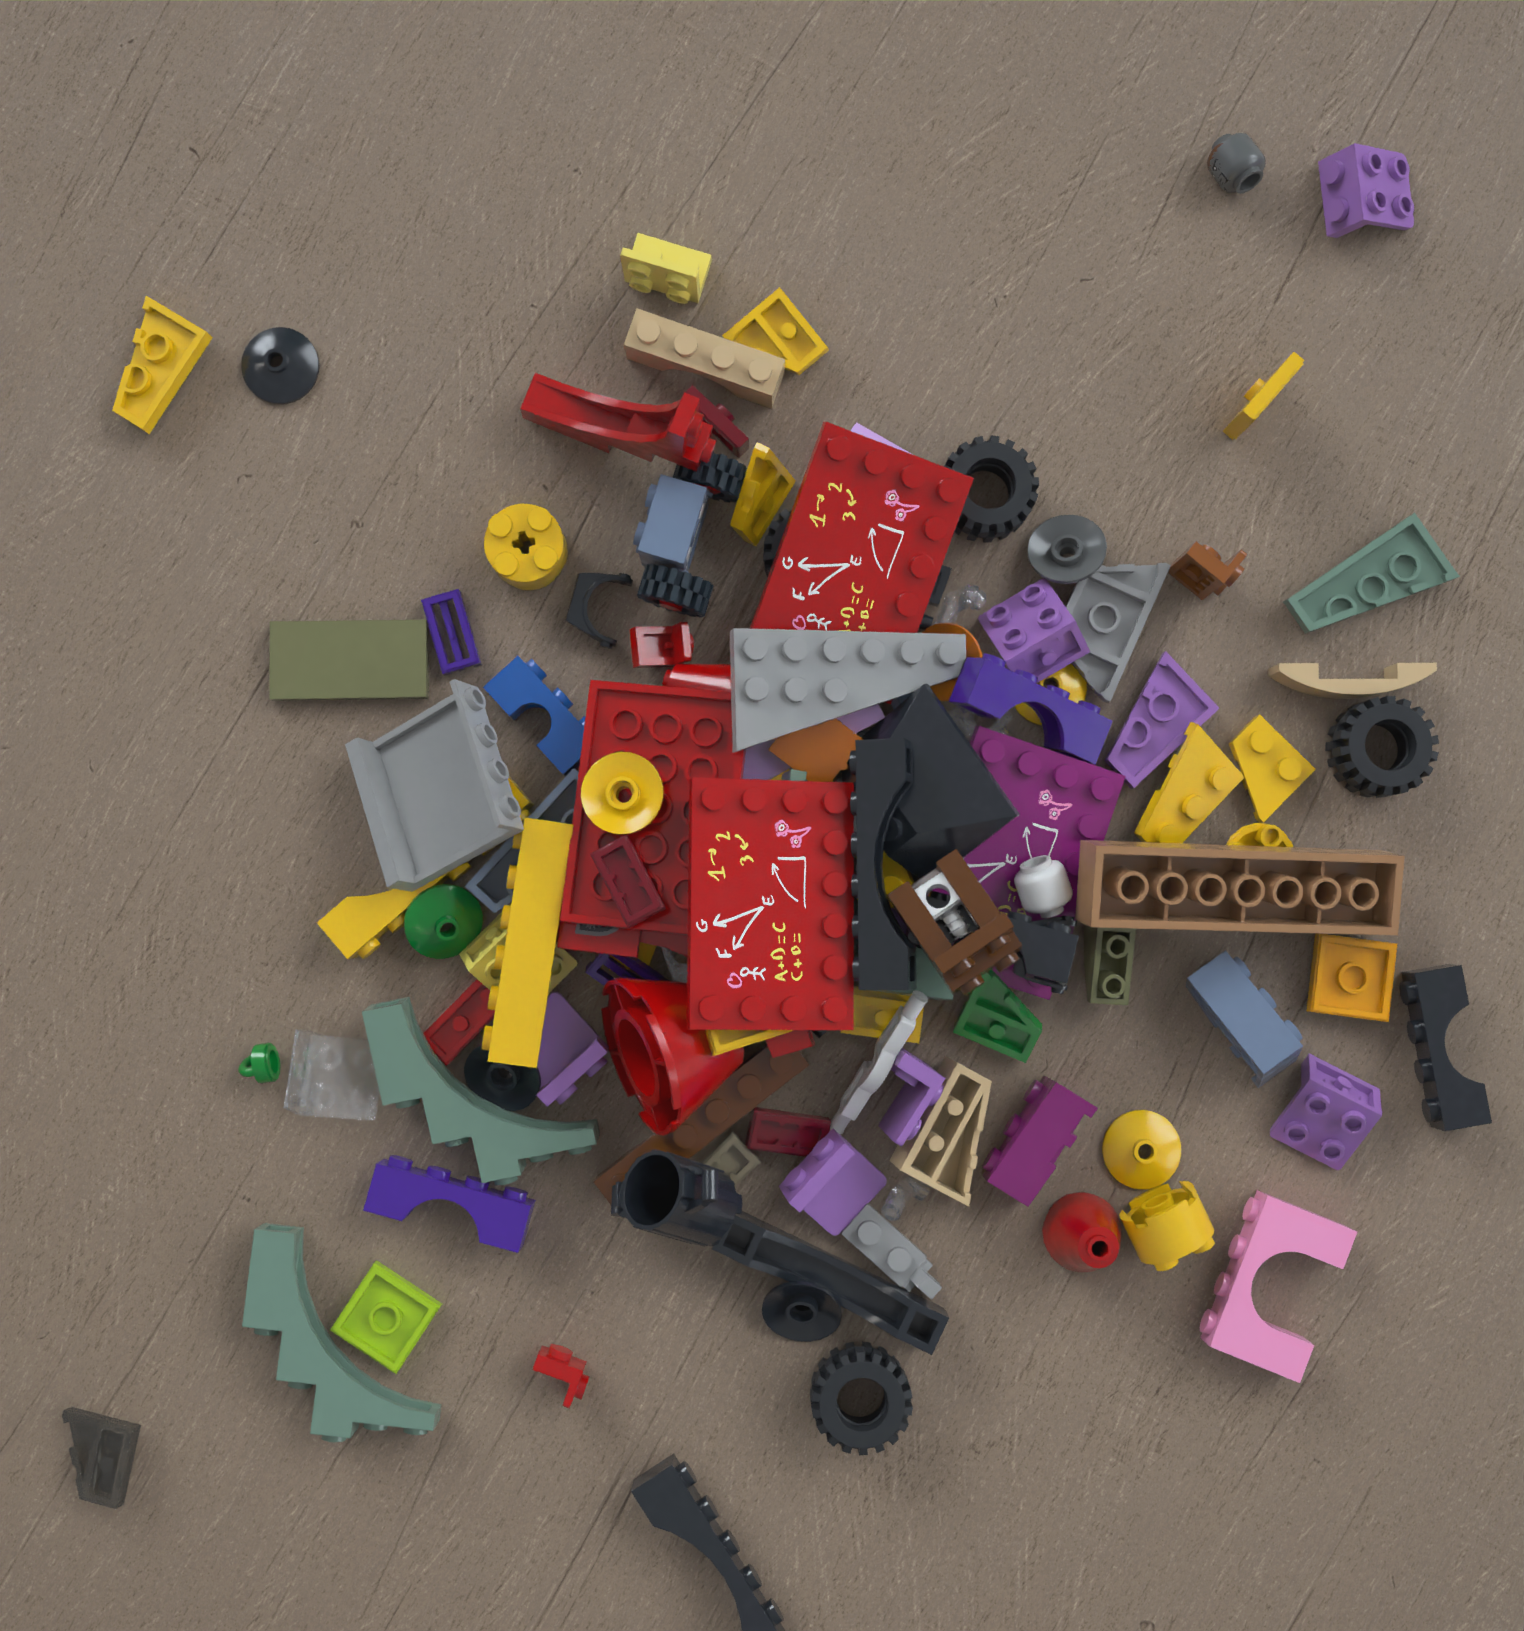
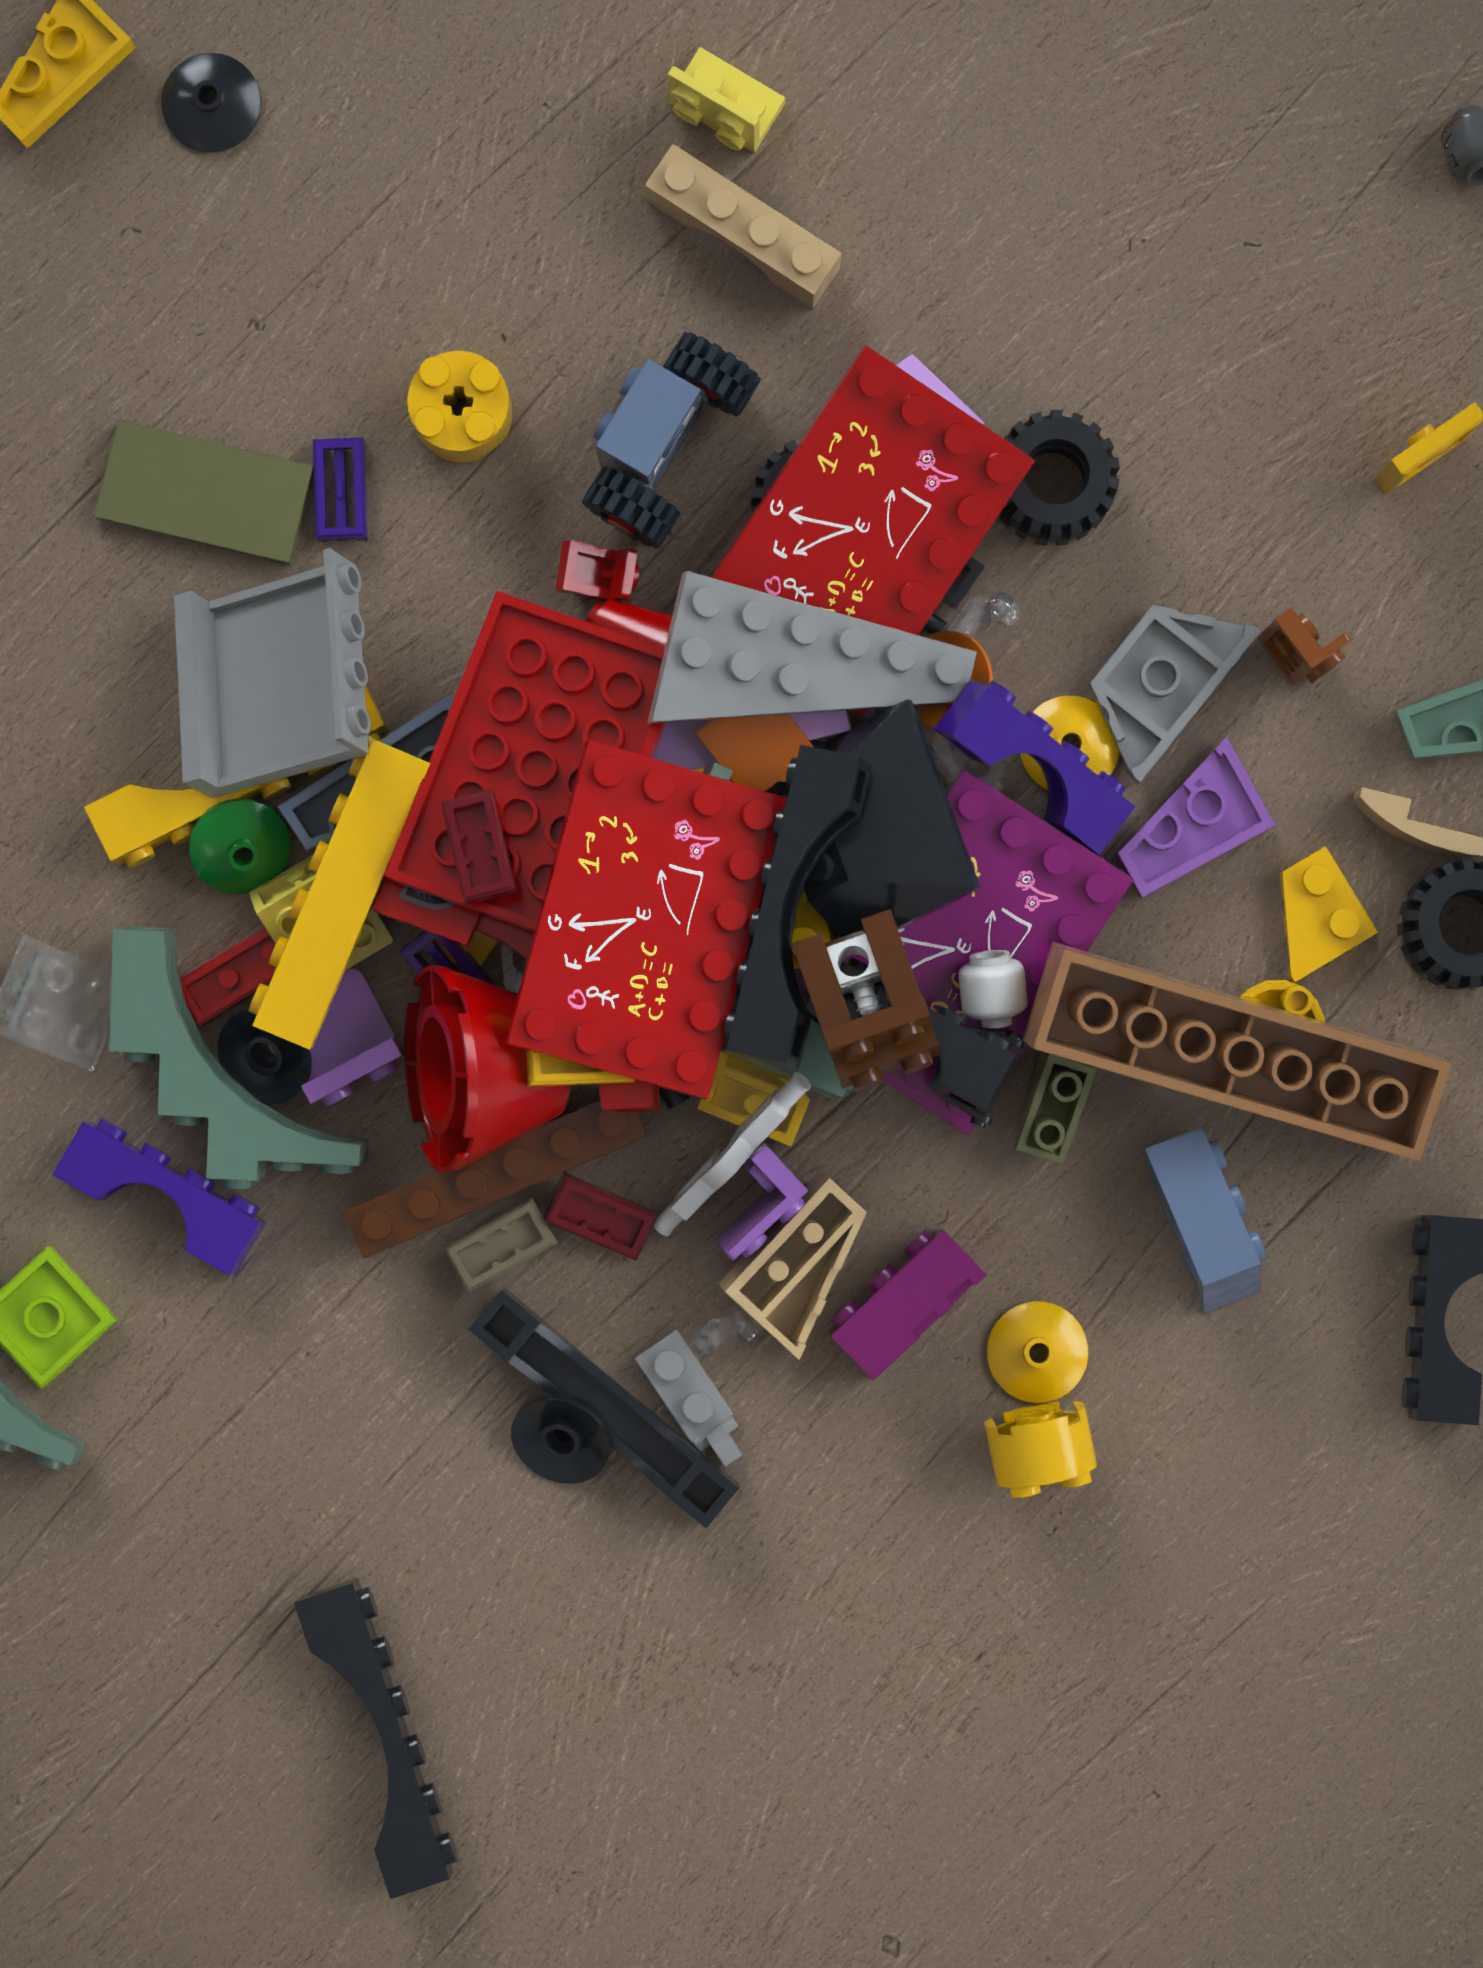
camera: 25 degrees right, 0 degrees up
(521, 688) = (408, 582): blue arch -> none
(560, 1364) = (245, 1426): red bracket -> none
(577, 611) = (505, 499): black helmet -> none
(607, 779) = (486, 717): yellow dish -> none
(642, 430) = (597, 277): red arch -> none
(677, 1198) = (442, 1253): black container -> none
(722, 424) = (739, 308): dark red plate -> none
(761, 494) = (769, 414): yellow wing -> none
(780, 331) = (845, 216): yellow wing -> none
(833, 1183) = (640, 1292): medium lavender bracket -> none
(867, 1430) = (586, 1604): black tyre -> none
(998, 1019) = (897, 1140): green wing -> none
(1034, 631) = (1066, 671): medium lavender bracket -> none
(1067, 536) = (1132, 561): dark grey dish -> none
(1082, 1232) = (920, 1417): red cone -> none
(1193, 788) = (1213, 919): yellow wing -> none
(1269, 1229) = (1095, 1592): bright pink arch -> none
(1328, 1113) = (1279, 1364): medium lavender bracket -> none
(1351, 977) = (1355, 1203): light orange plate -> none

